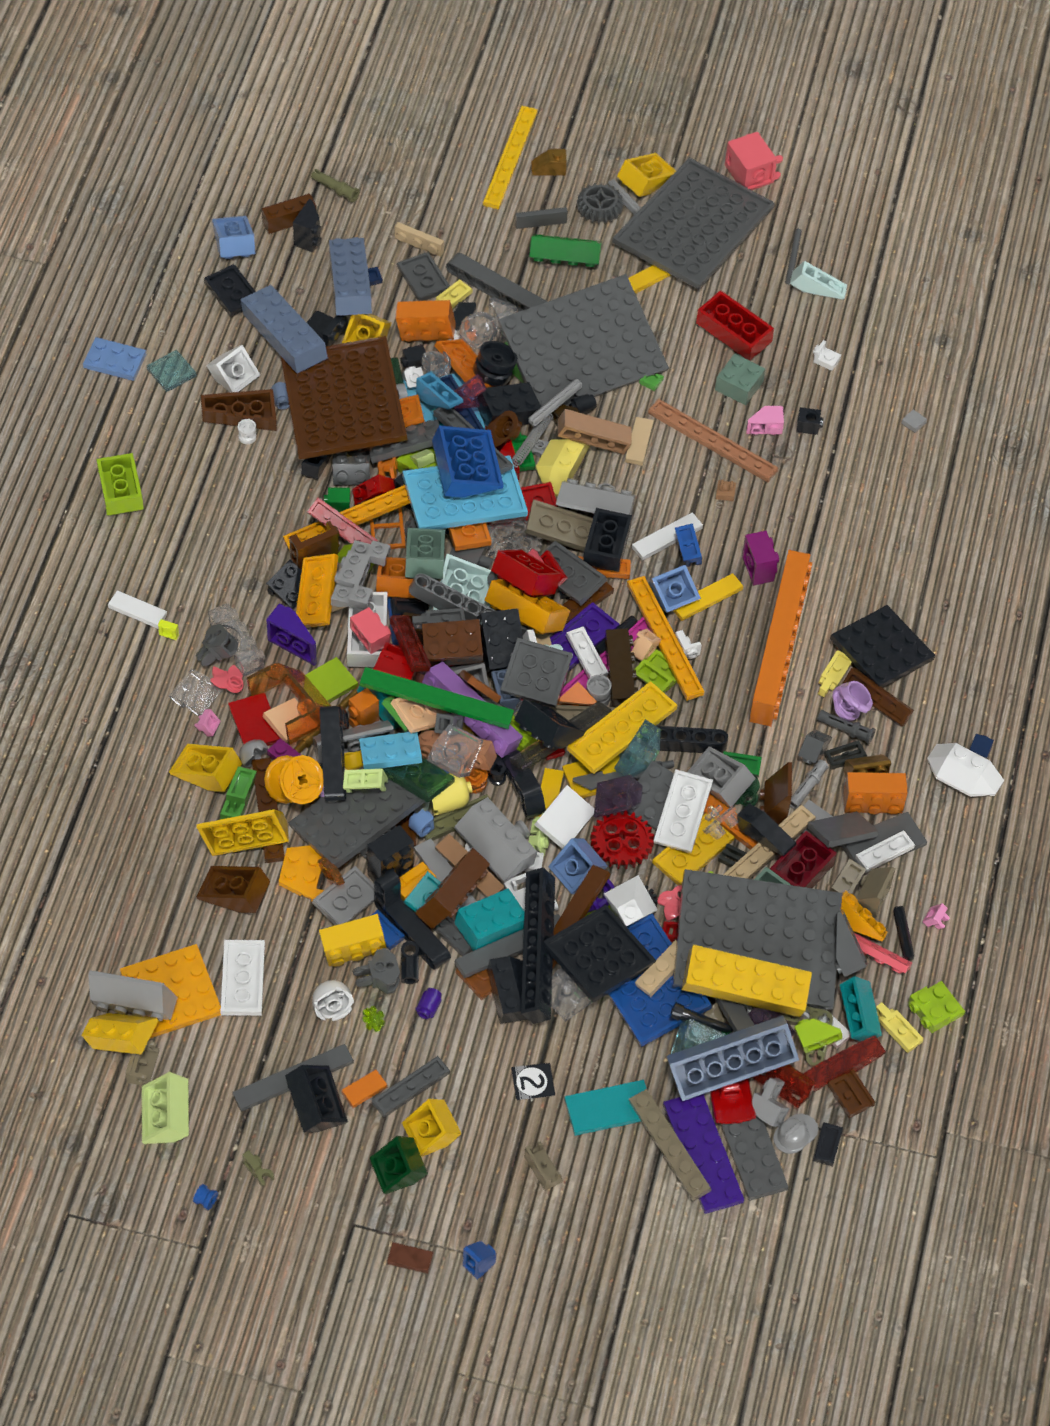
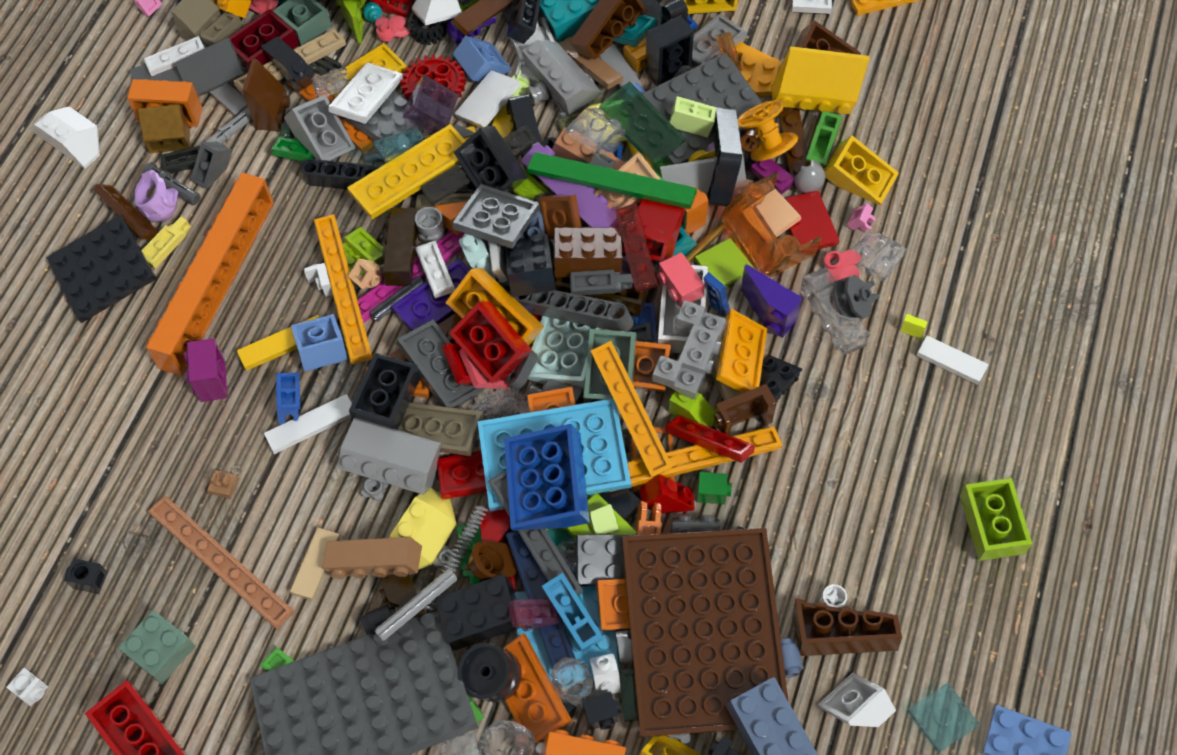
camera: 170 degrees left, 5 degrees up
(338, 627) = (716, 294): none -> blue tile
(390, 750) = (665, 144): medium azure plate -> none
(406, 518) = (631, 409): none -> light orange plate
(766, 421) = (140, 579): bright pink slope -> none
(982, 745) = (40, 151): dark blue brick -> none

